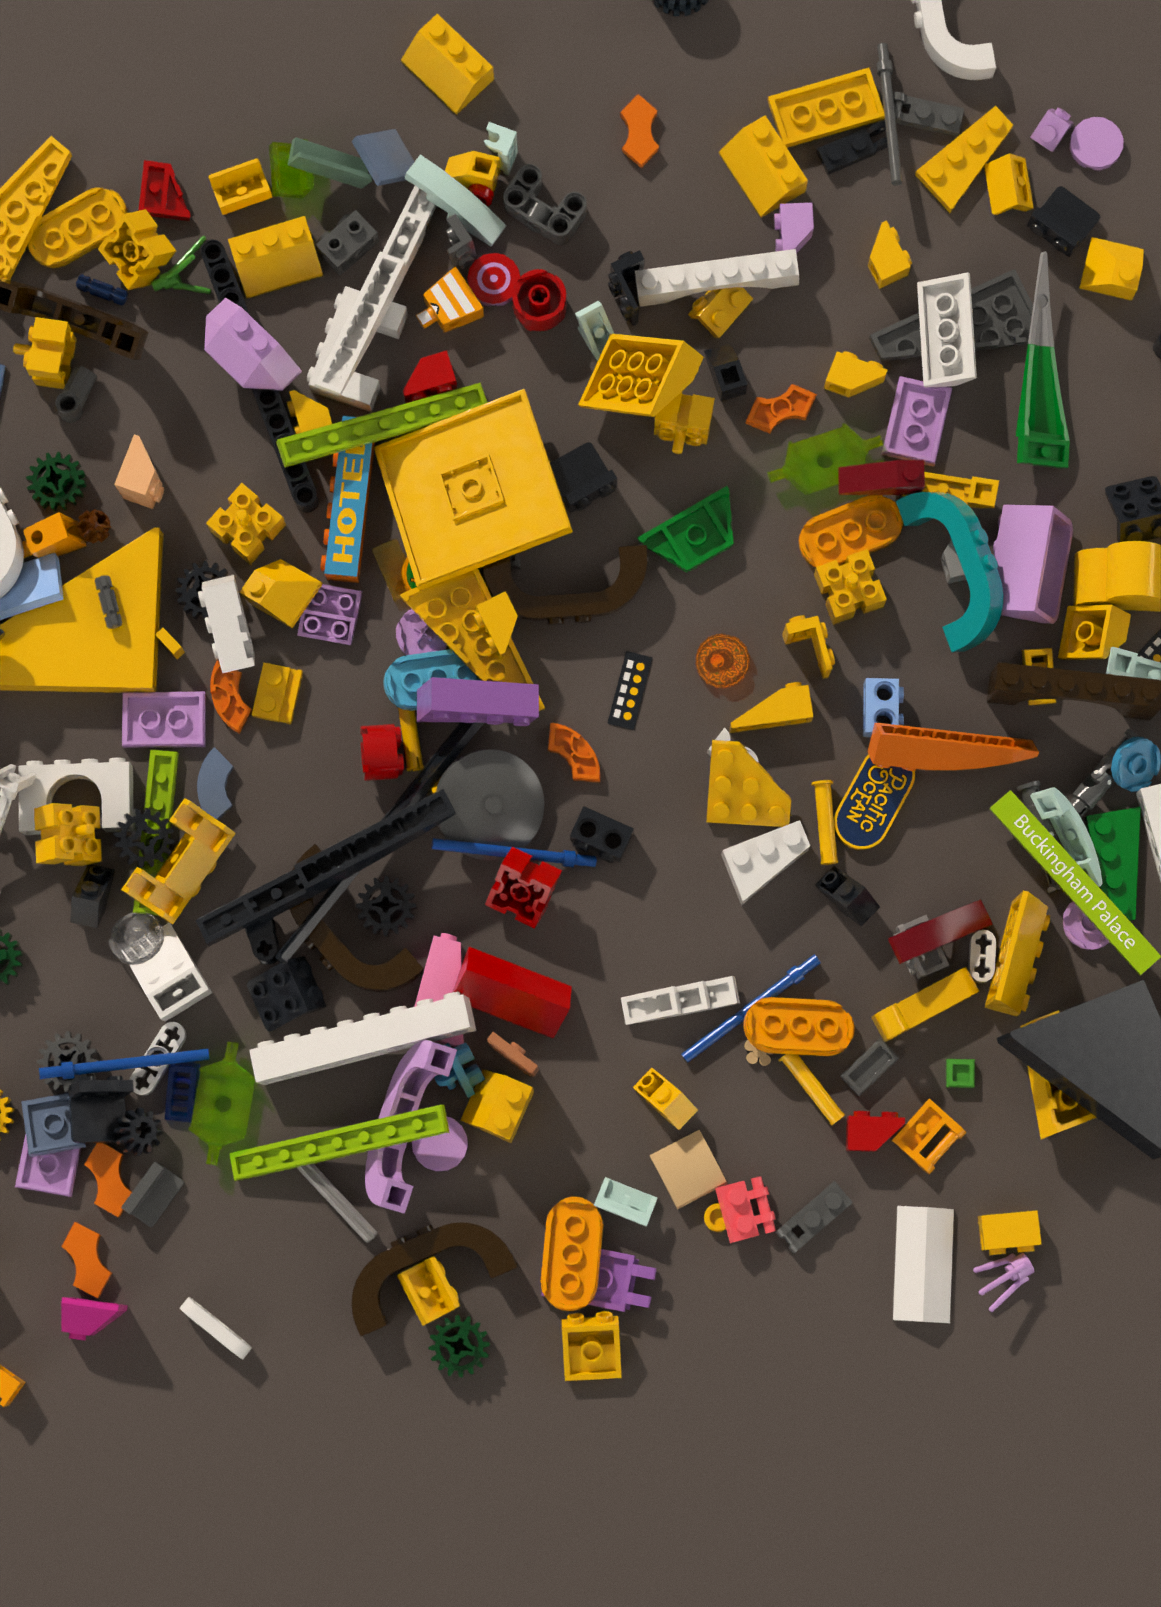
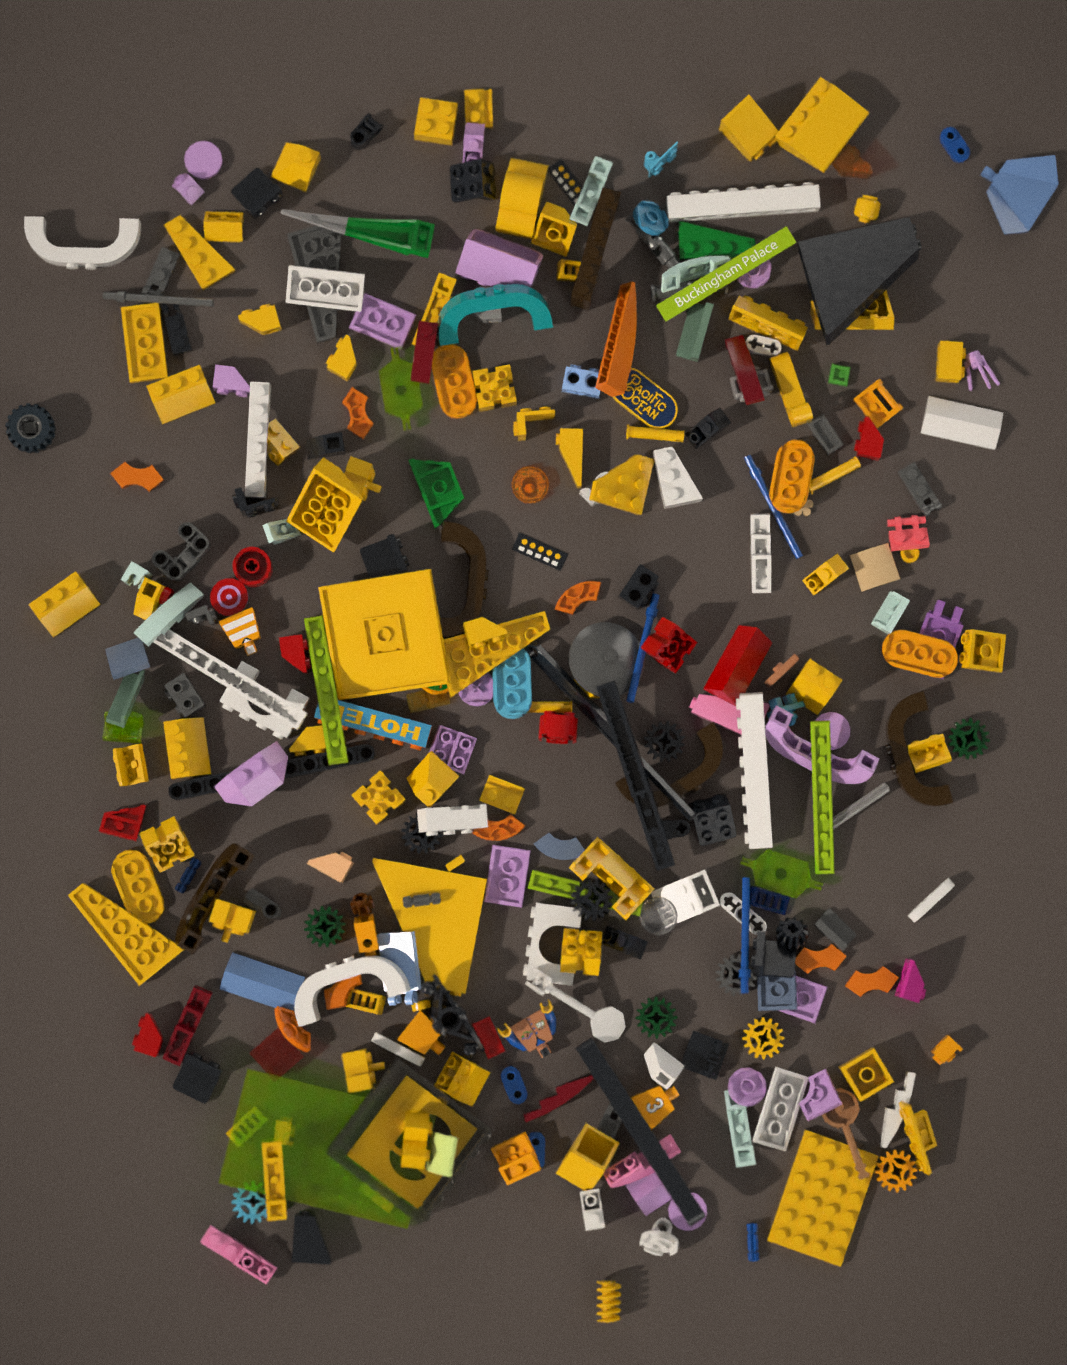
camera: 85 degrees left, 5 degrees up
(172, 278) = (188, 824): bright green plant -> none
(477, 702) = (537, 655): medium lavender wedge -> none
(984, 855) = (694, 331): none -> sand green panel

